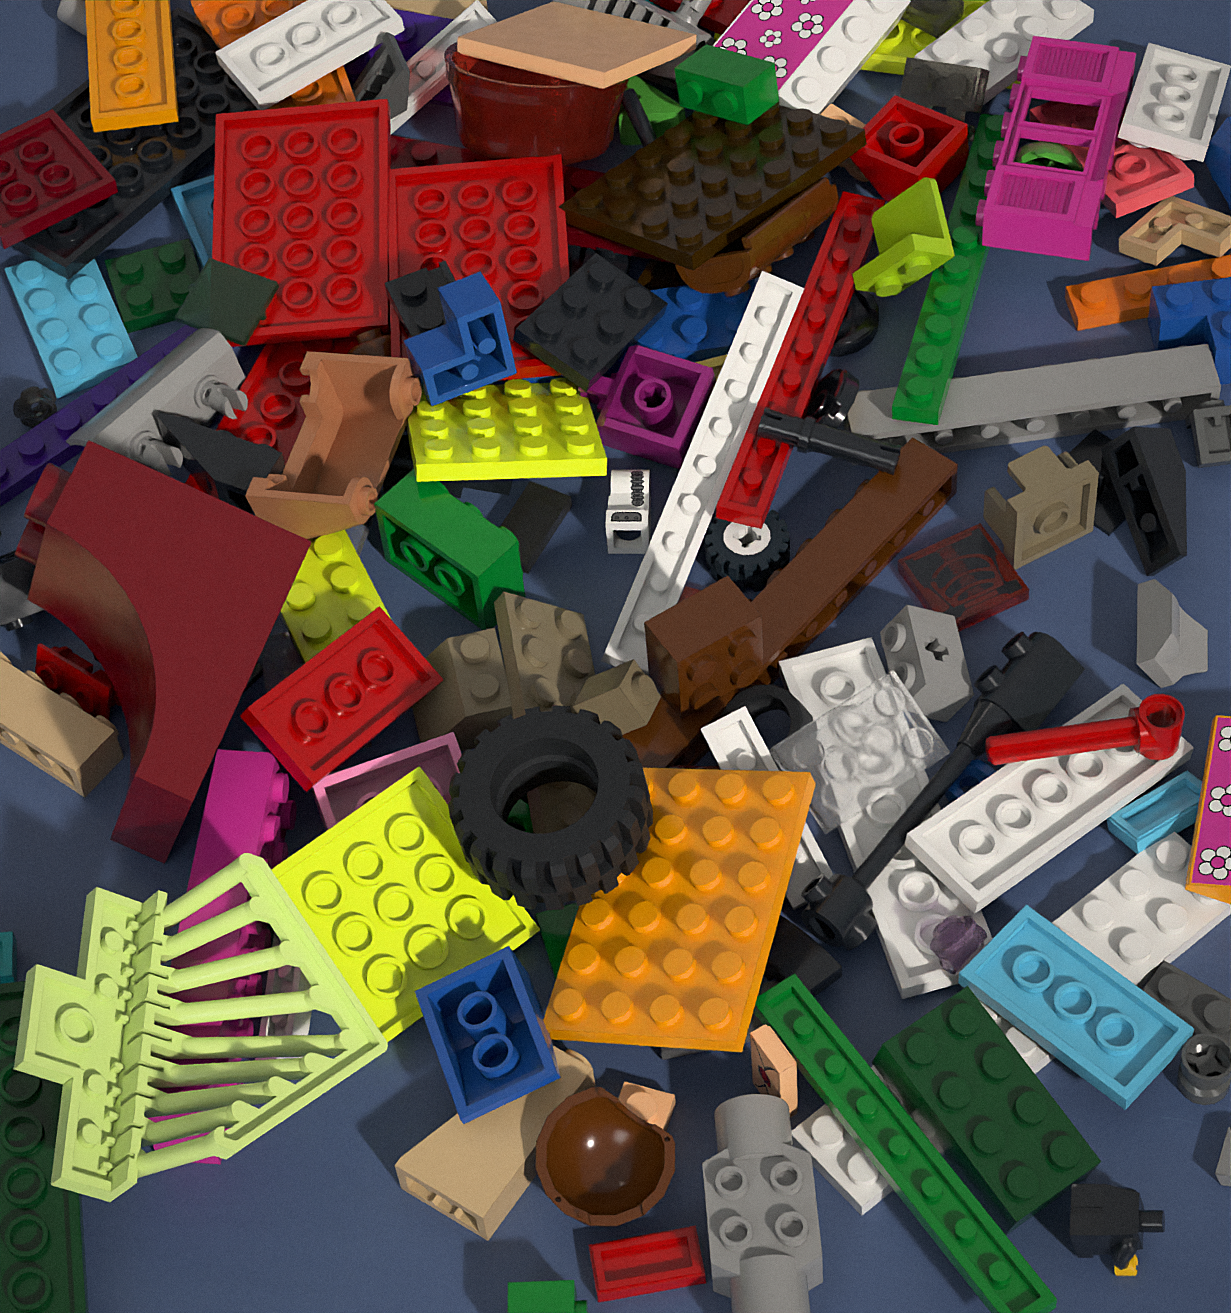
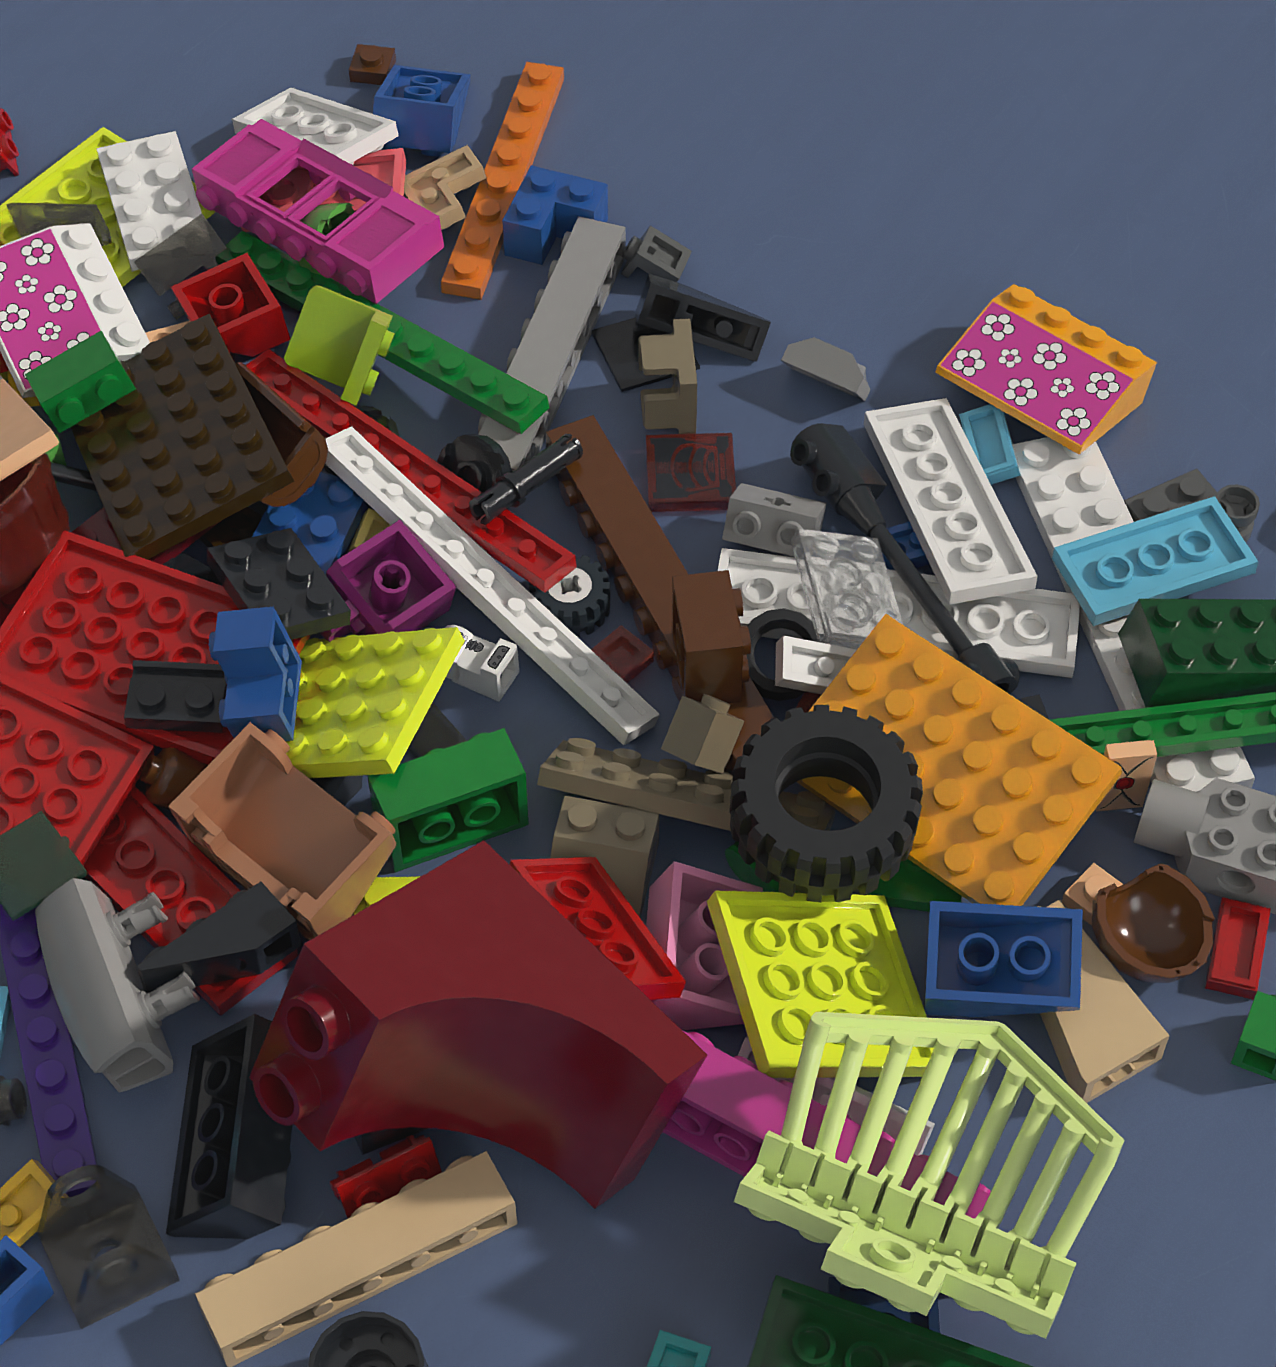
camera: 70 degrees left, 0 degrees up
(956, 941) = (1056, 609): clear purple plate -> none
(1150, 728) = (929, 412): red axle -> none

